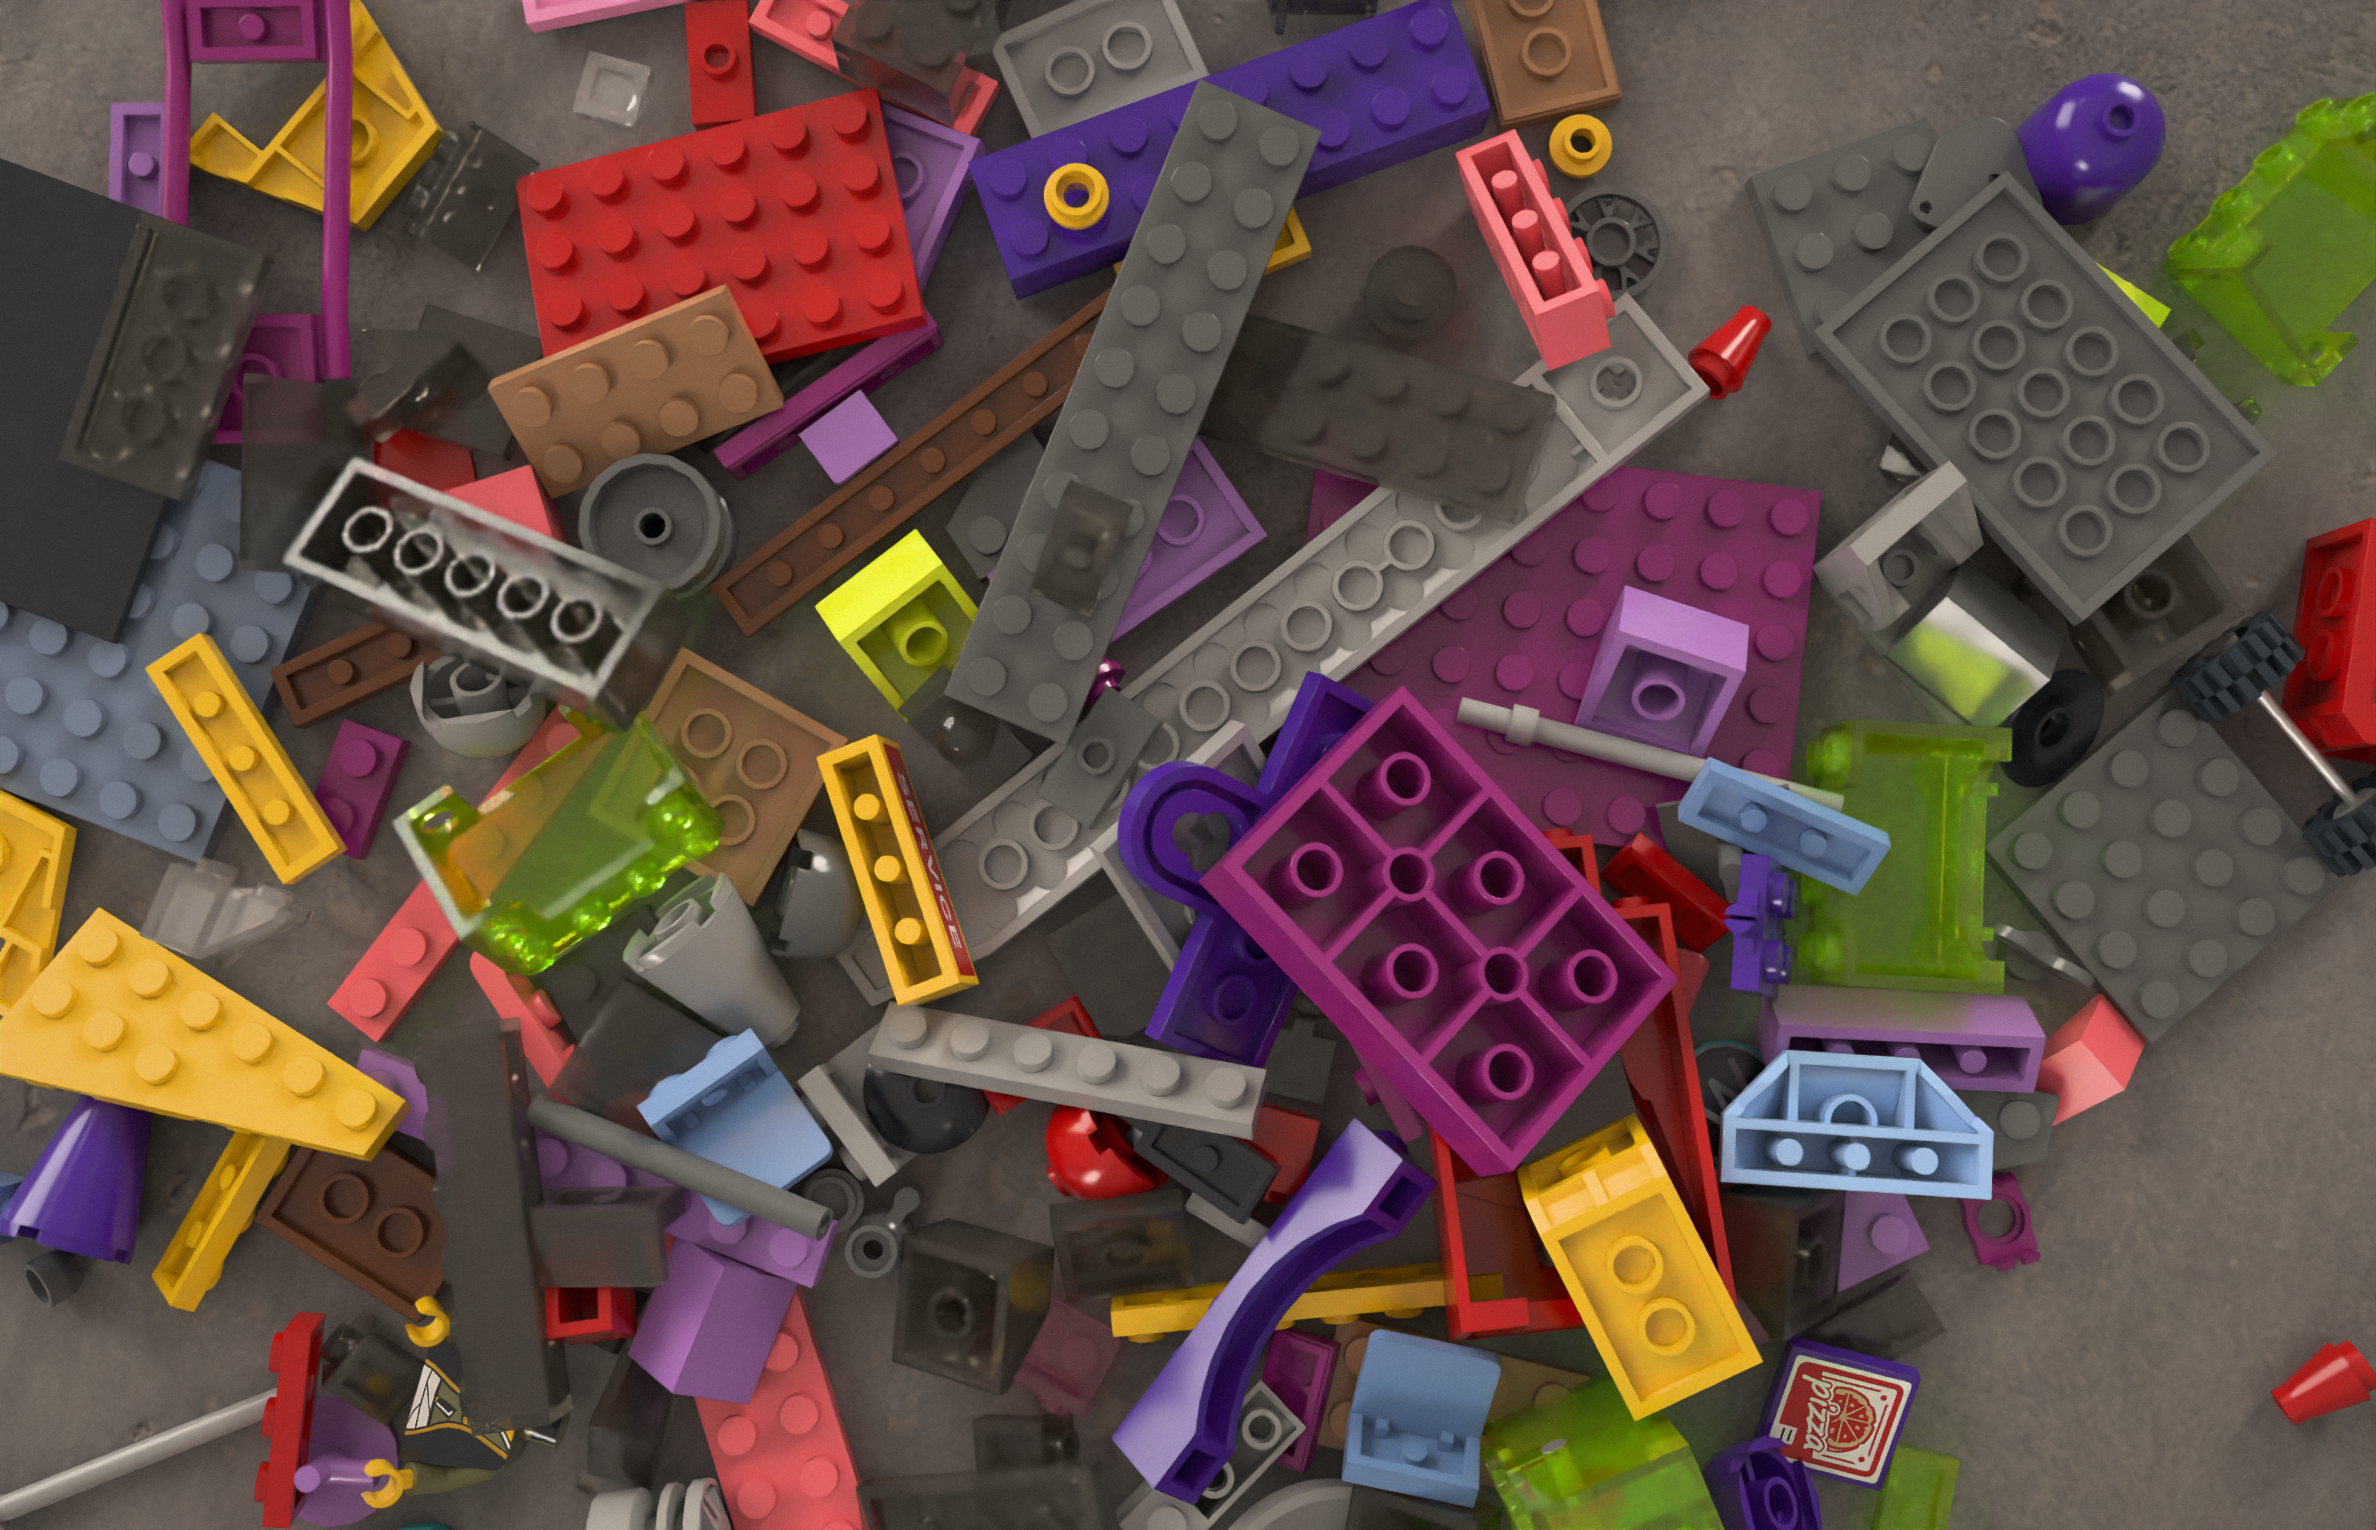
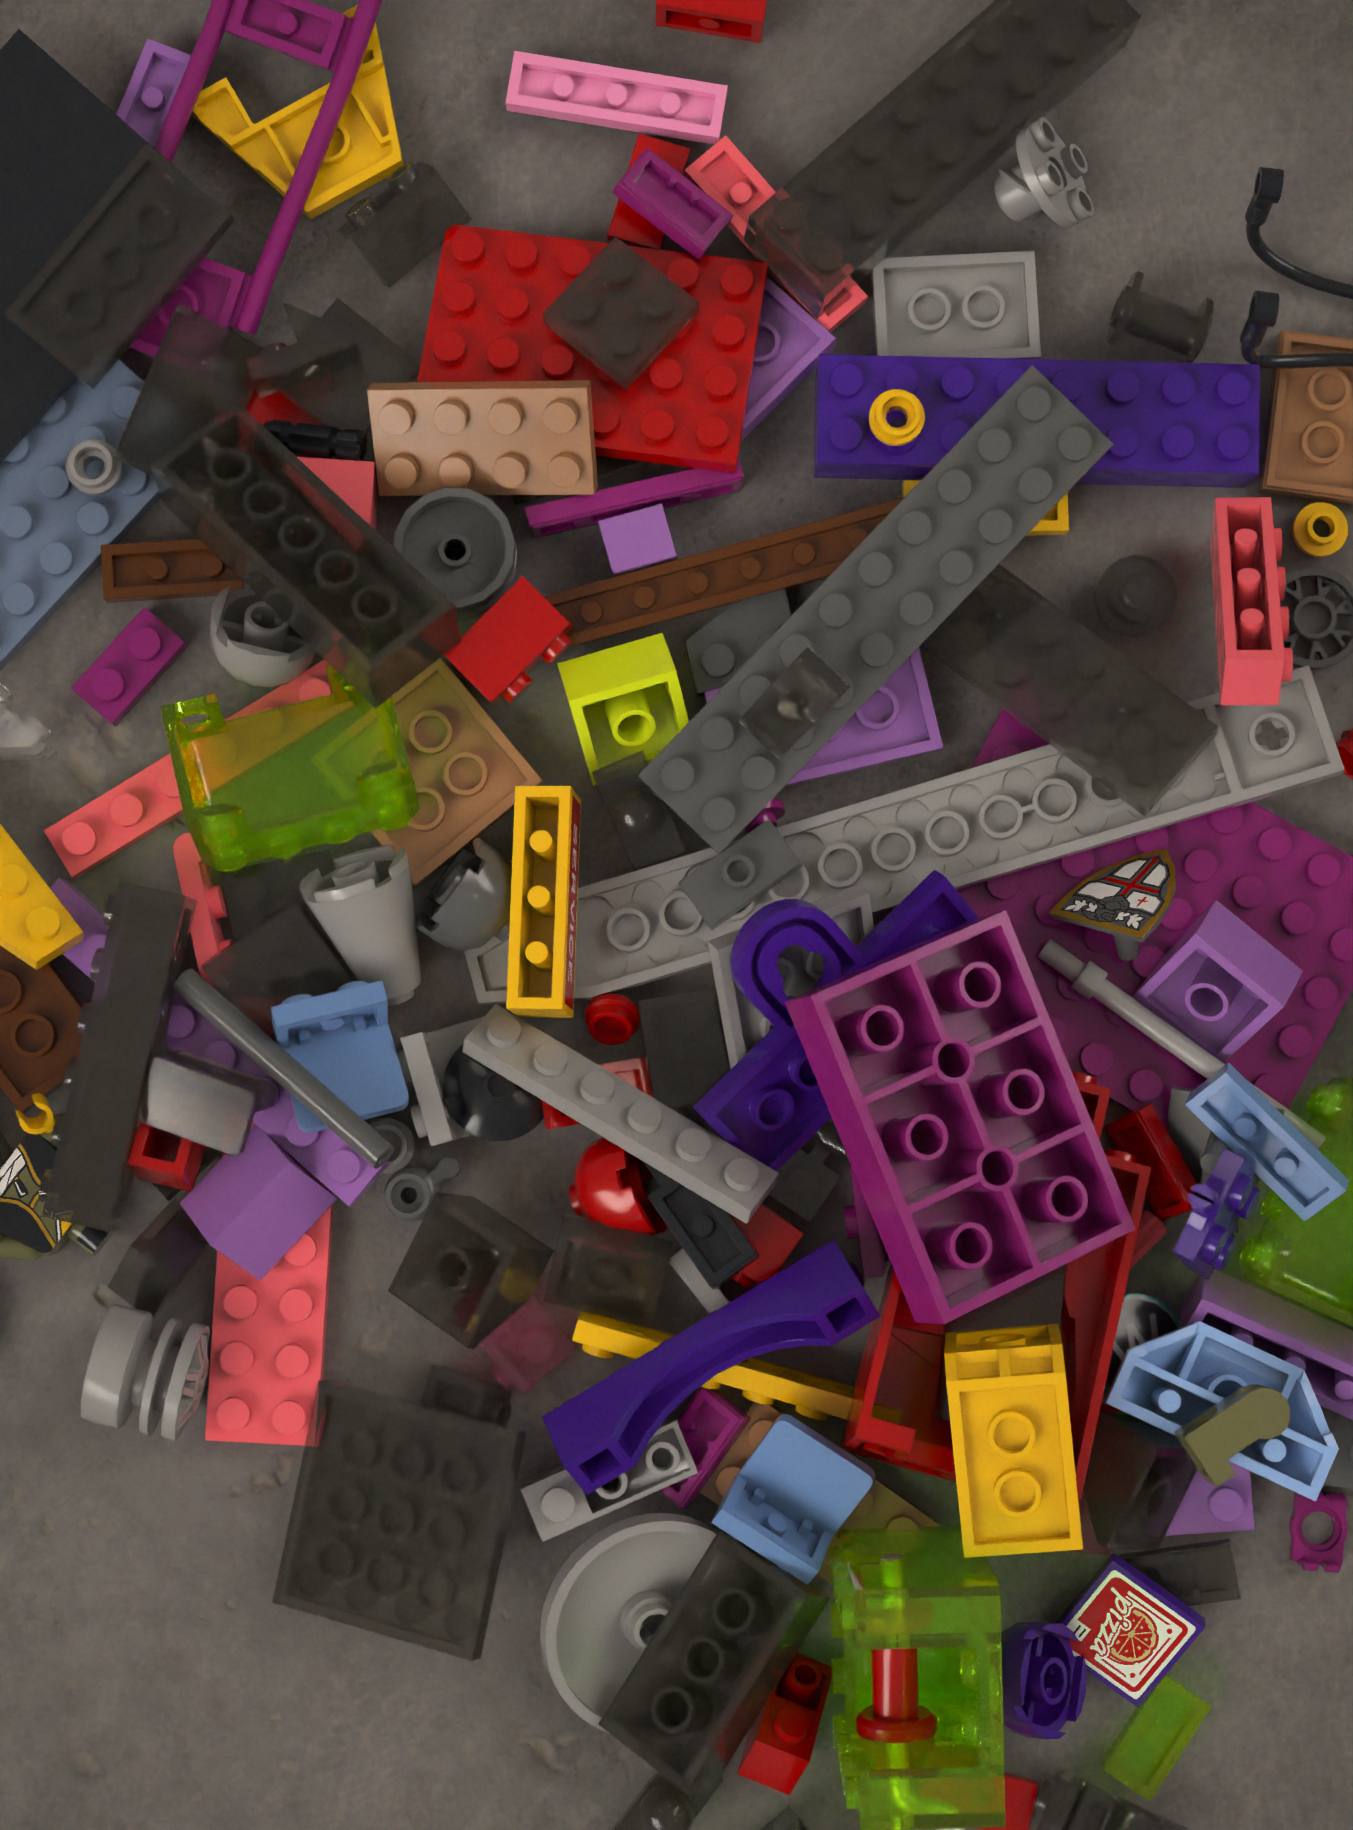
camera: 15 degrees right, 0 degrees up
(209, 584) = (82, 456): none -> light grey plate
(246, 758) = (58, 610): yellow plate -> none
(462, 464) = (319, 440): none -> black axle
(614, 92) = (553, 184): clear plate -> none
(734, 199) = (621, 312): none -> clear smoke plate
(747, 61) = (672, 203): none -> magenta plate
(753, 603) = (511, 642): none -> red brick
(1023, 967) = (611, 1018): none -> red plate
(1525, 624) = (1123, 900): none -> shield
(1870, 1155) = (1231, 1427): none -> olive leg

